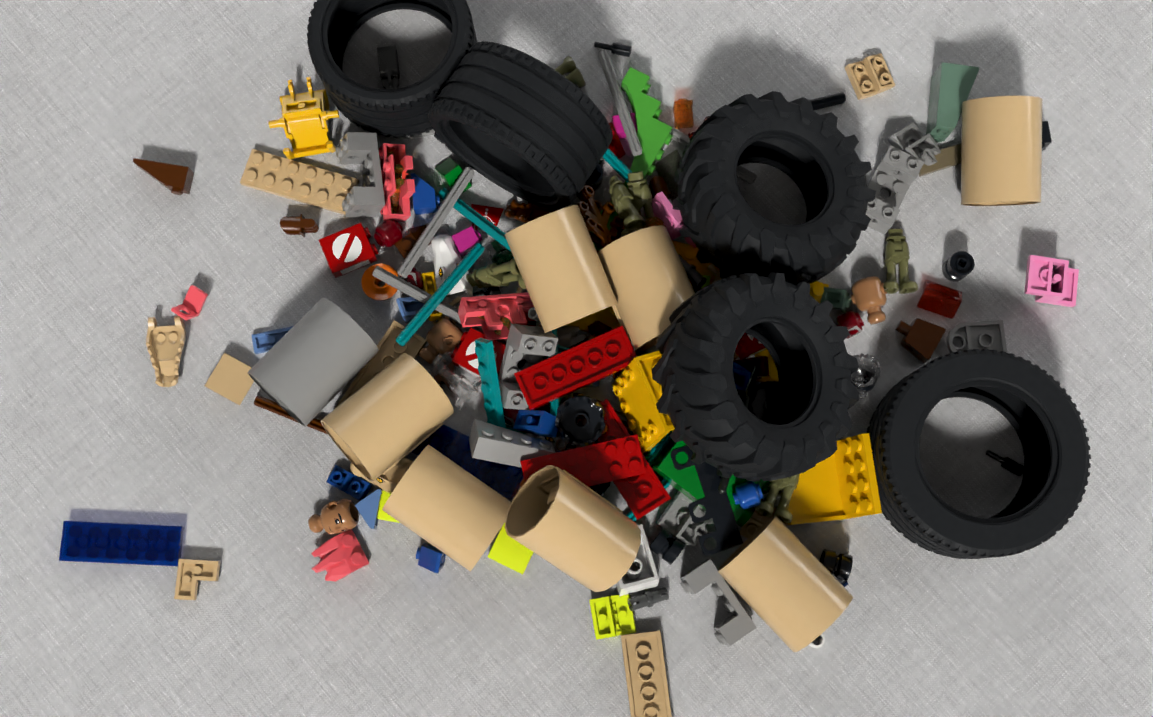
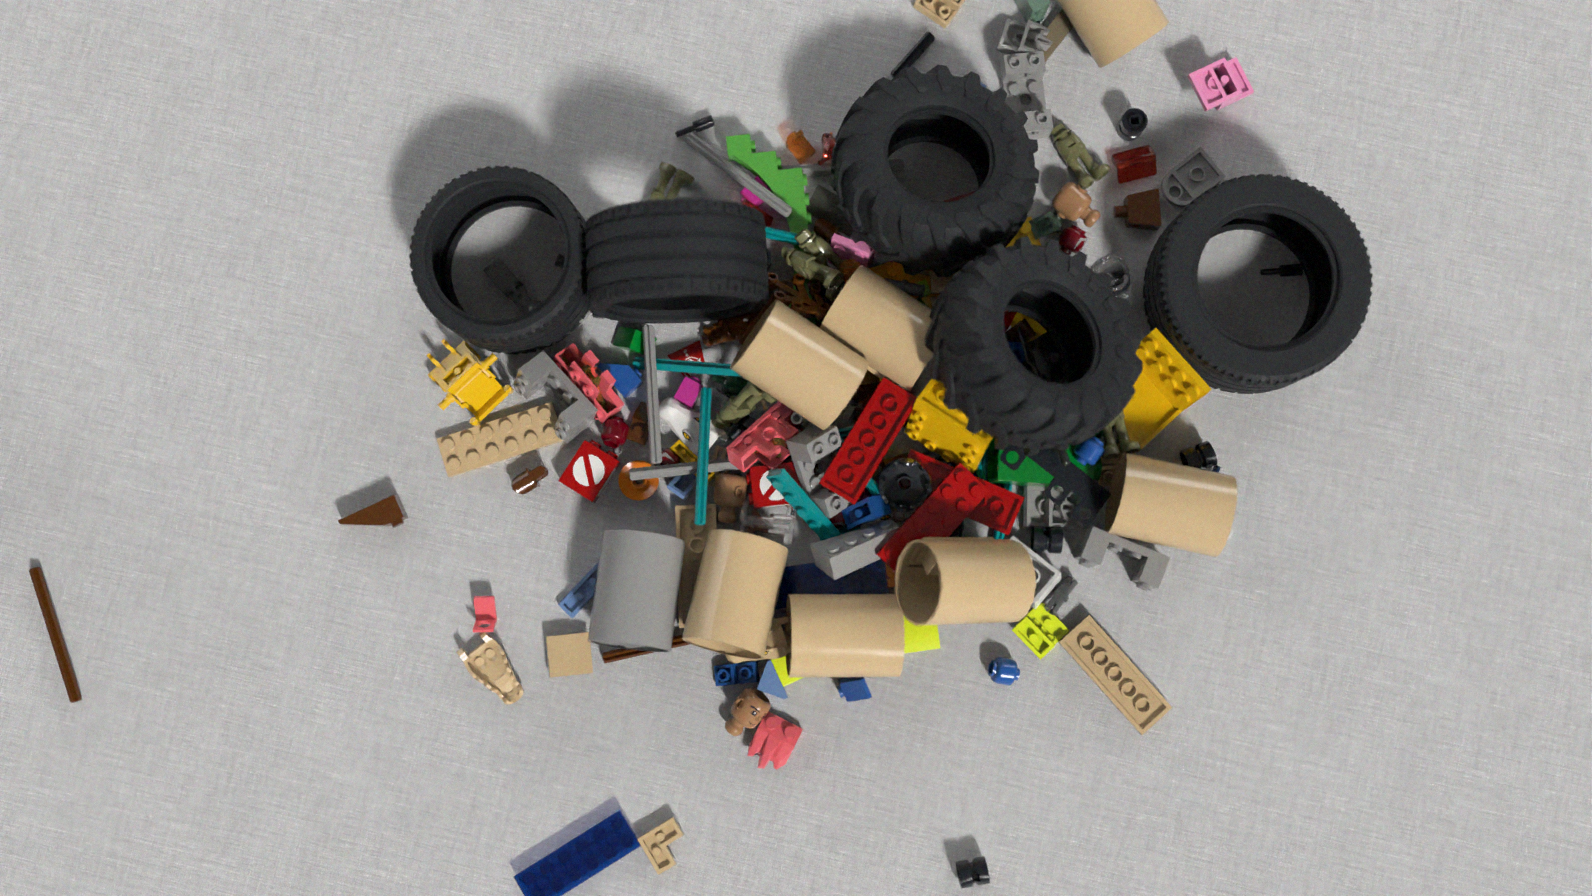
camera: 30 degrees left, 5 degrees up
(560, 628) = (1003, 671): none -> blue head

